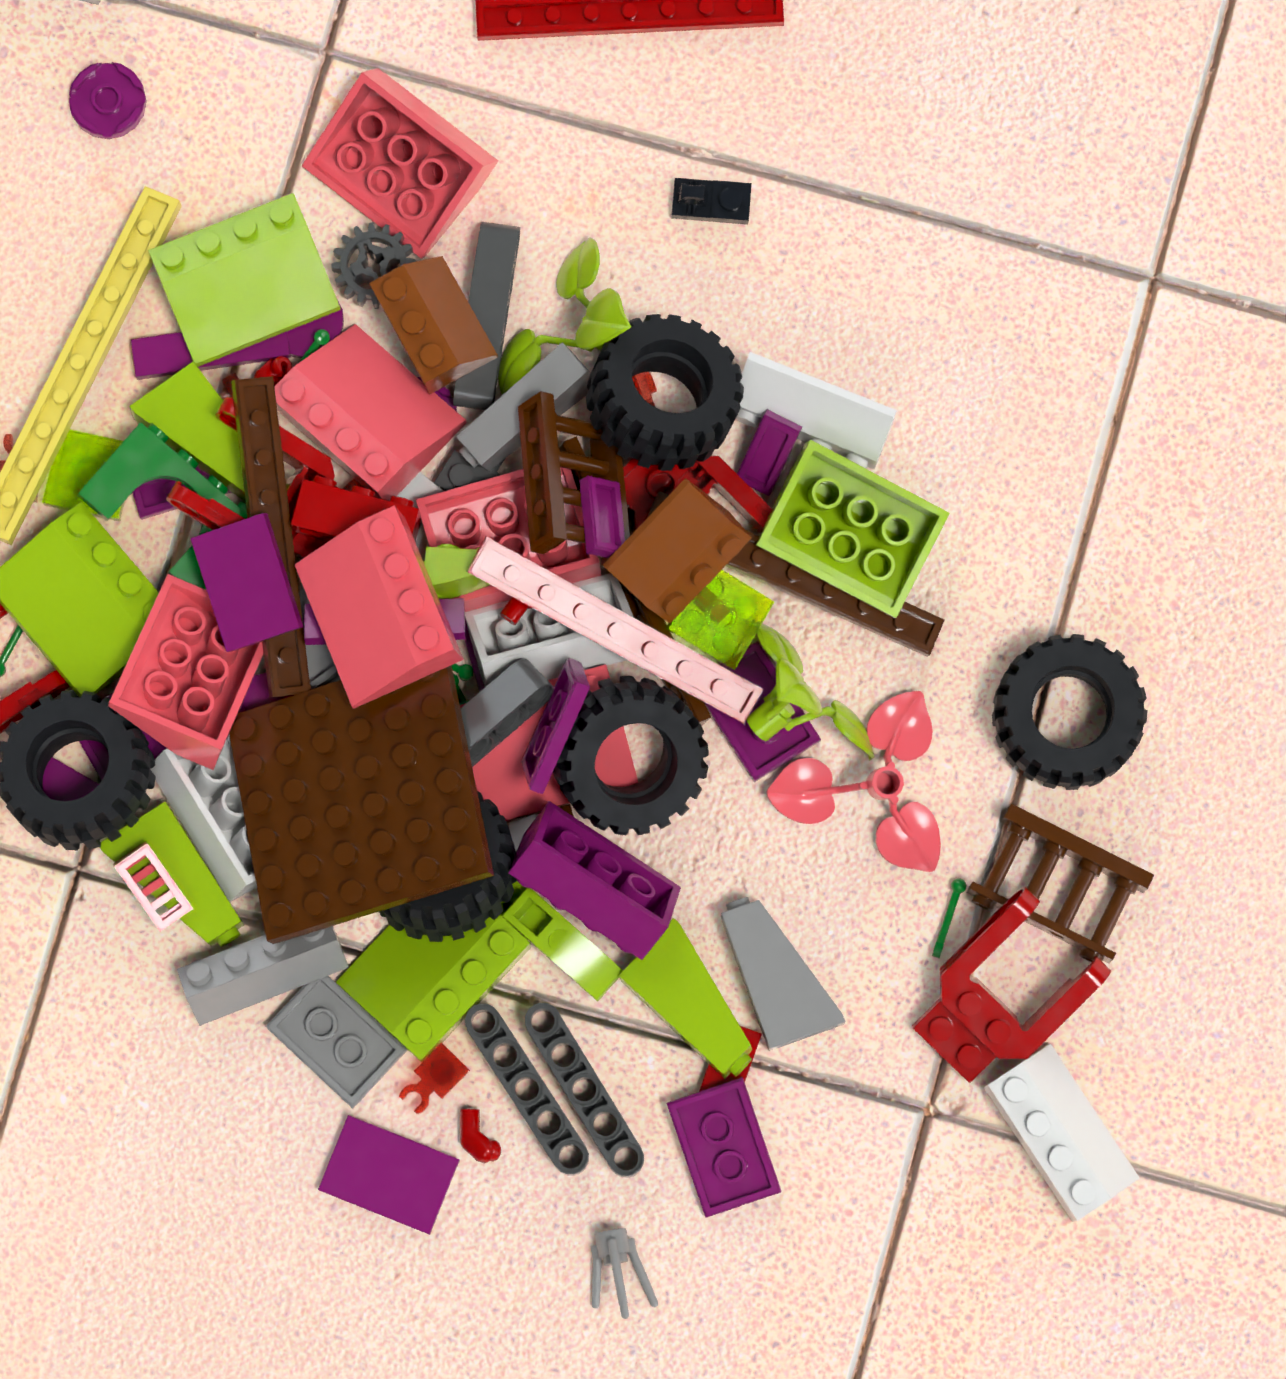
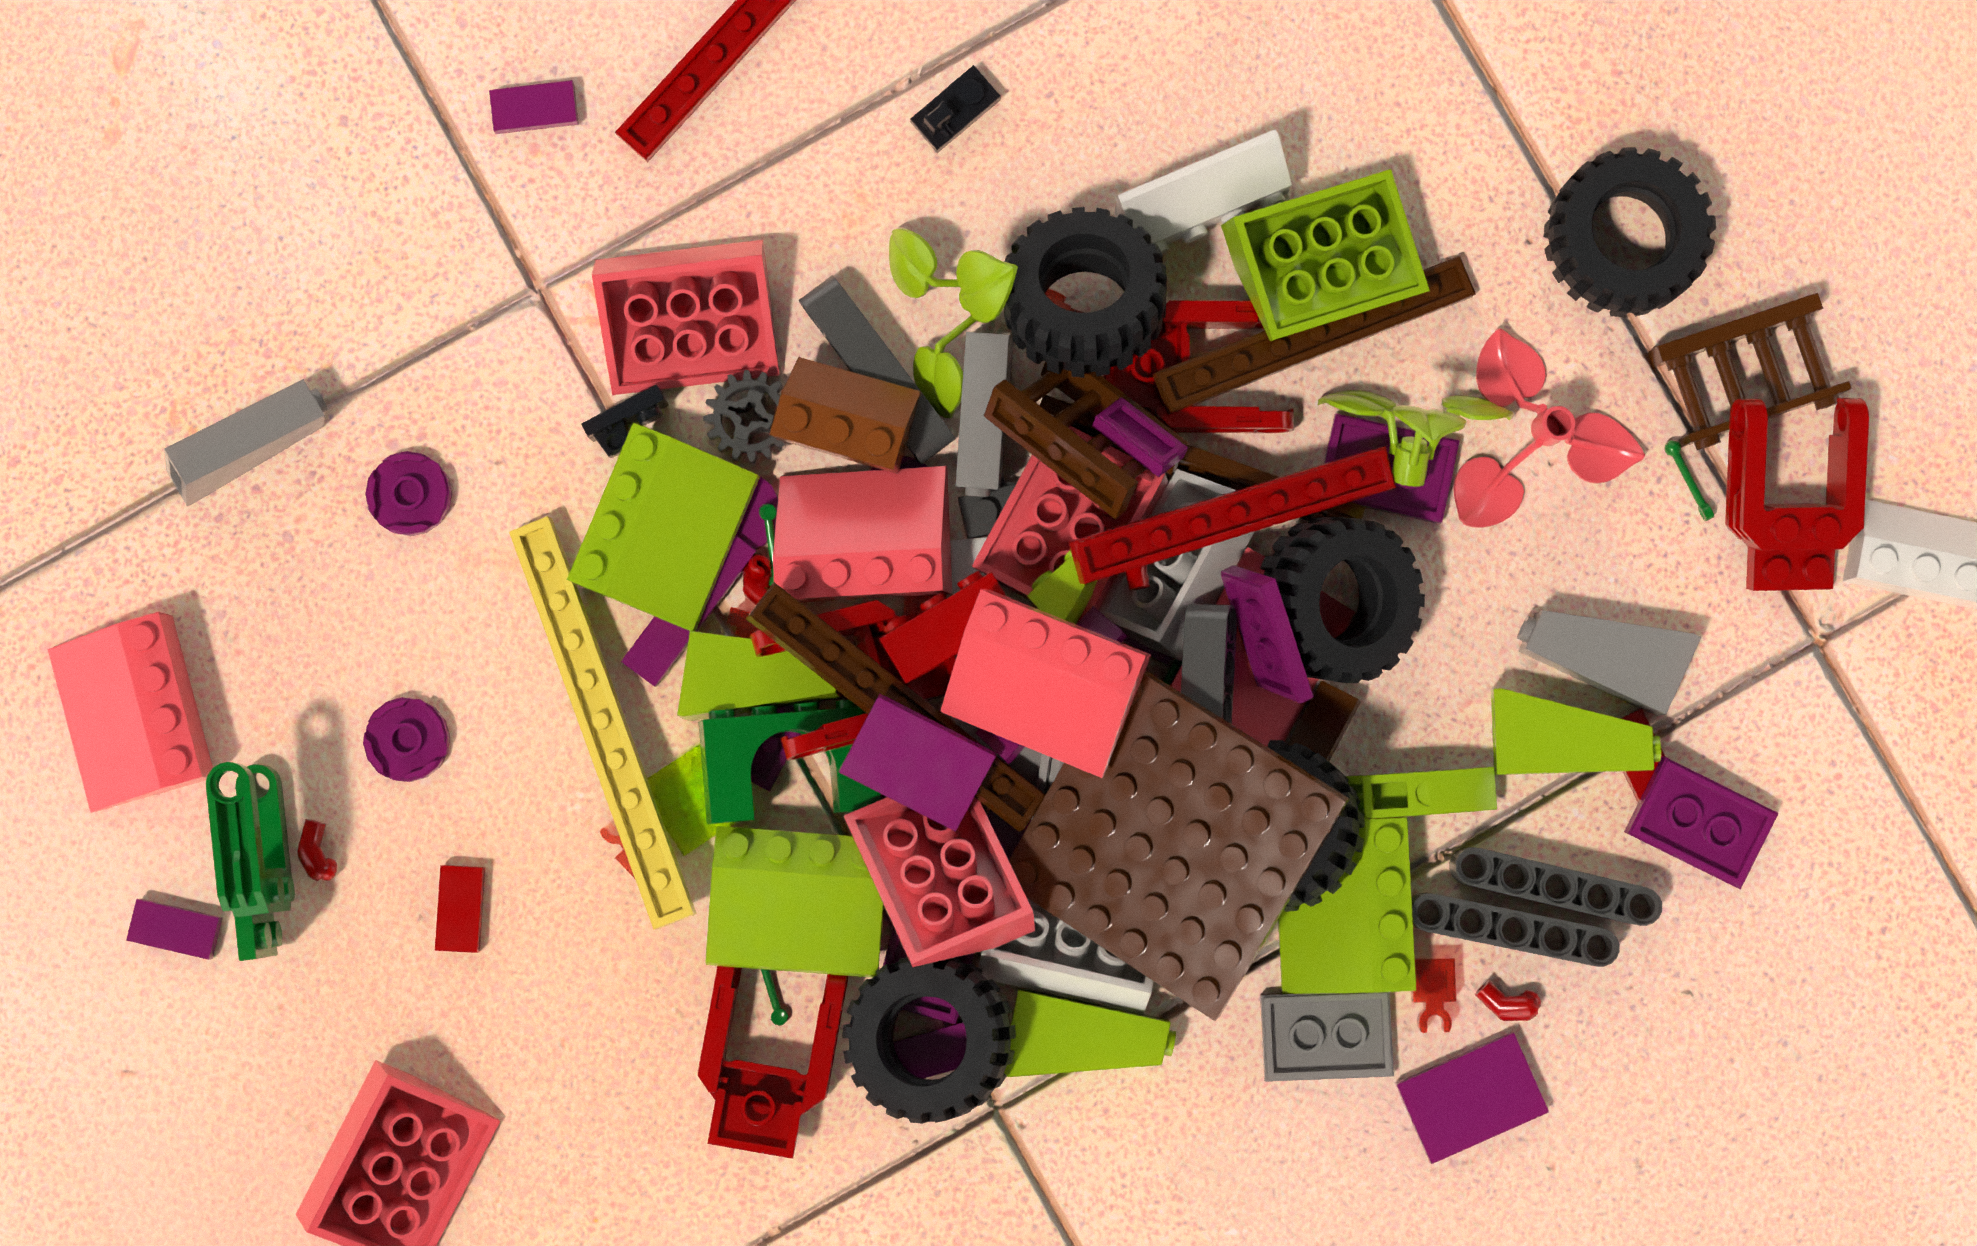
camera: 40 degrees left, 5 degrees up
(133, 858) = (1041, 1057): slope -> none
(258, 972) = (1219, 1051): light grey brick -> none
(279, 182) = (610, 426): none -> black hinge
(595, 880) = (1411, 721): magenta brick -> none
(613, 1249) = (1696, 982): light grey plant -> none
(677, 550) = (1224, 404): dark orange slope -> none
(722, 619) = (1295, 422): clear neon green plate -> none
(769, 452) = (1201, 259): magenta tile -> none

